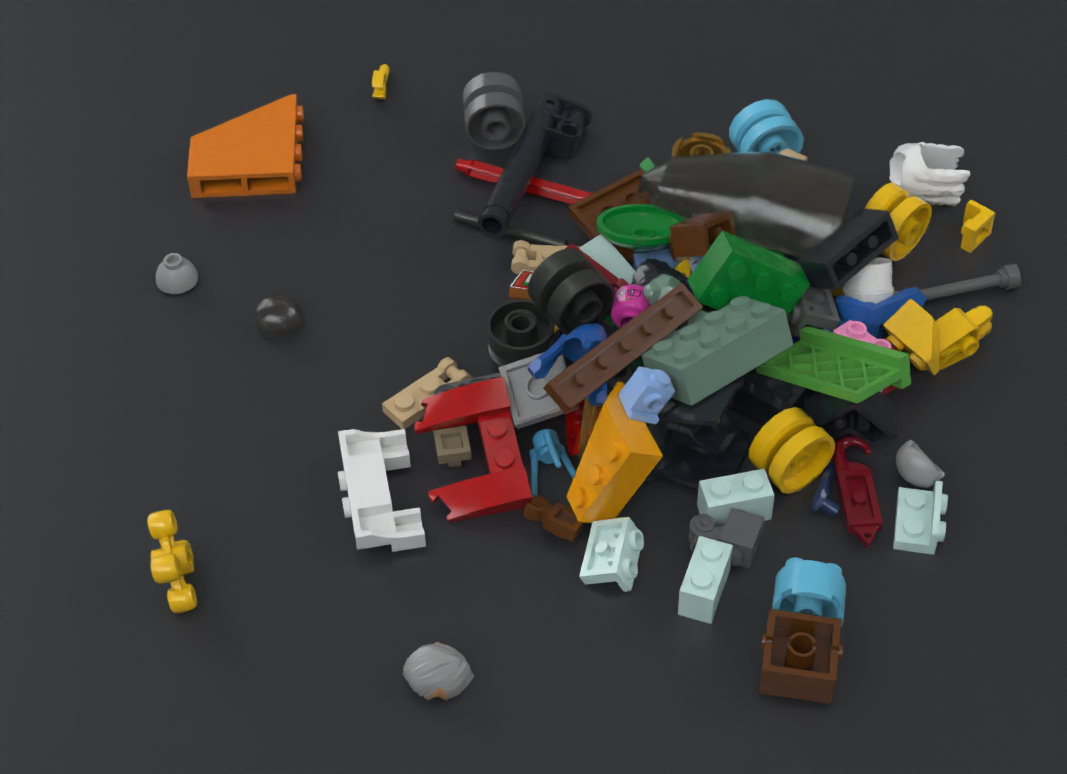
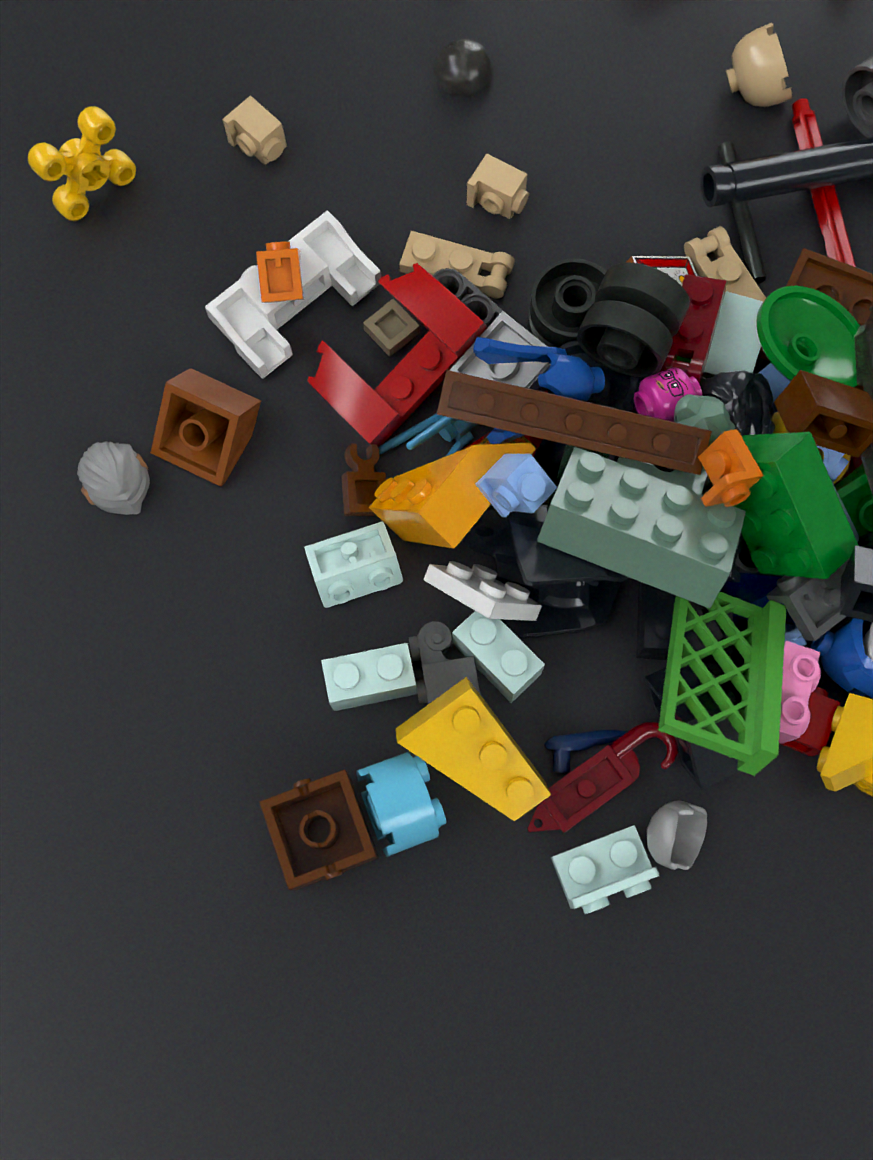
camera: 60 degrees right, 25 degrees up
(227, 453) = (255, 131): none -> tan brick
(372, 472) = (279, 273): none -> orange bracket
(390, 339) = (498, 187): none -> tan brick
(422, 164) = (759, 69): none -> tan cylinder
(441, 593) = (204, 425): none -> dark orange slope
(680, 481) = (483, 592): none -> white plate
(715, 282) = (729, 469): none -> orange bracket
(791, 450) = (595, 680): yellow wheel -> none
(798, 529) = (475, 750): none -> yellow wedge

